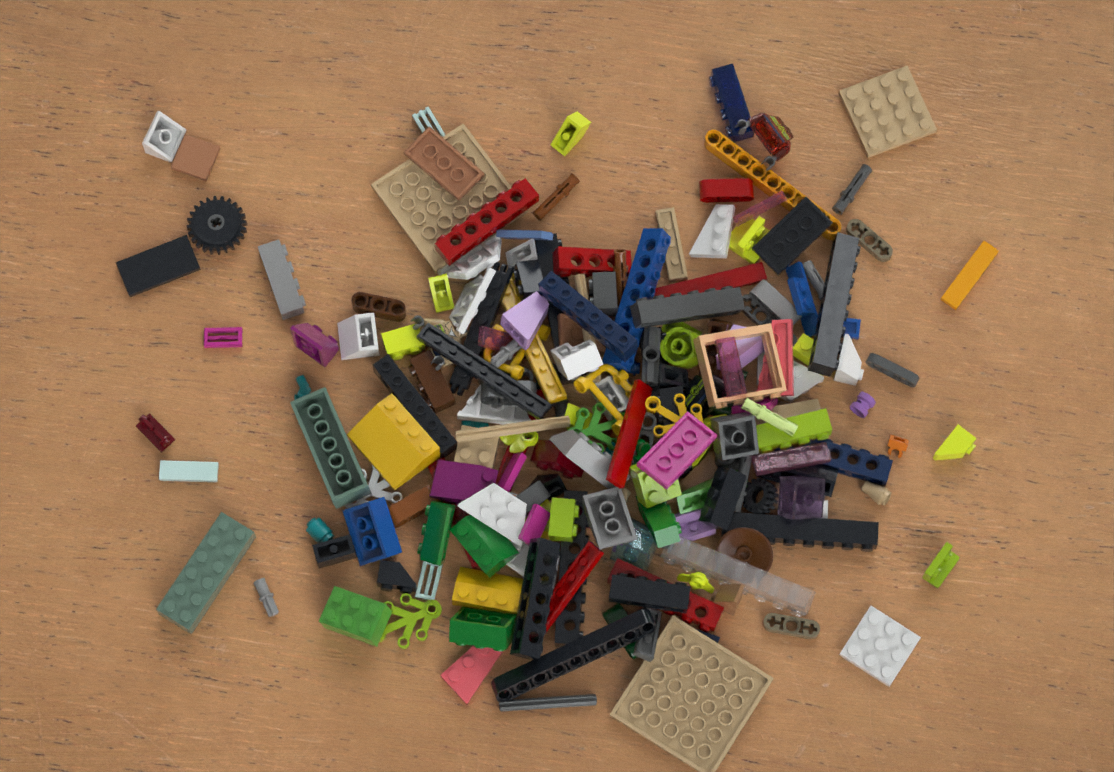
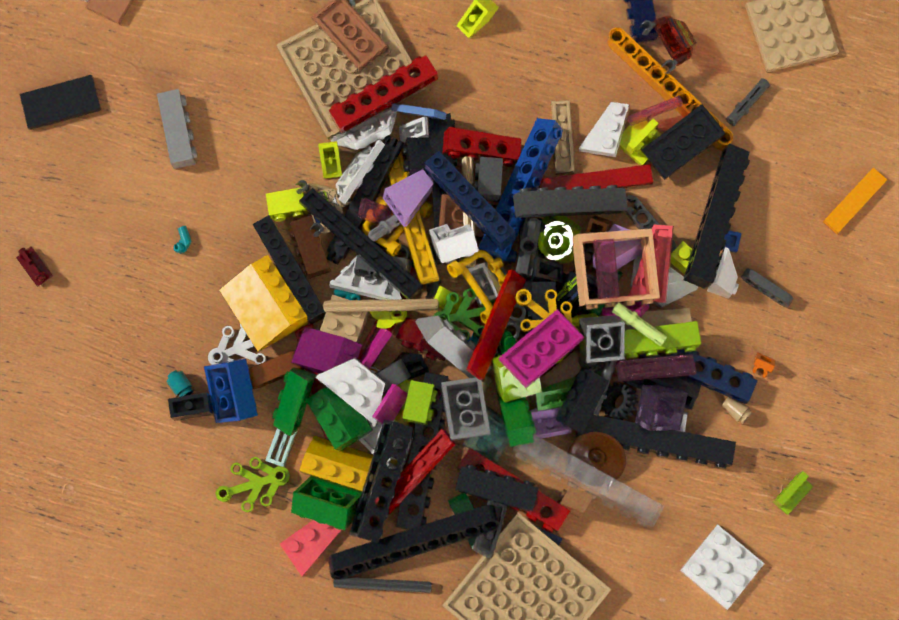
camera: 10 degrees right, 5 degrees up
(188, 471) = (61, 308): light aqua tile -> none
(206, 573) = (62, 413): sand green brick -> none
(212, 213) = (121, 68): black gear -> none
(239, 337) = (129, 181): dark pink tile -> none
(266, 597) = (119, 444): light grey axle -> none
(314, 343) = (199, 194): magenta slope -> none
(330, 448) = (200, 302): sand green brick -> none
(355, 616) = (202, 475): bright green brick -> none
(358, 337) = (244, 194): white slope -> none
(372, 300) = (261, 160): reddish brown beam -> none
(394, 576) = (247, 438): black slope -> none
(561, 192) = (455, 77): dark orange pin -> none
(620, 269) = (508, 160): dark orange pin -> none
(697, 581) = (546, 480): neon yellow plate -> none
(726, 190) = (623, 89): red beam -> none
(774, 301) = (658, 206): light grey beam -> none
(802, 297) = (686, 205): blue bracket -> none
(805, 633) = (648, 545): dark tan beam -> none
(814, 277) = (700, 186): light grey pin -> none
(862, 405) = (733, 319): medium lavender wheel -> none
(870, 248) = (758, 162): dark tan beam -> none
(956, 445) = (822, 371): neon yellow slope -> none

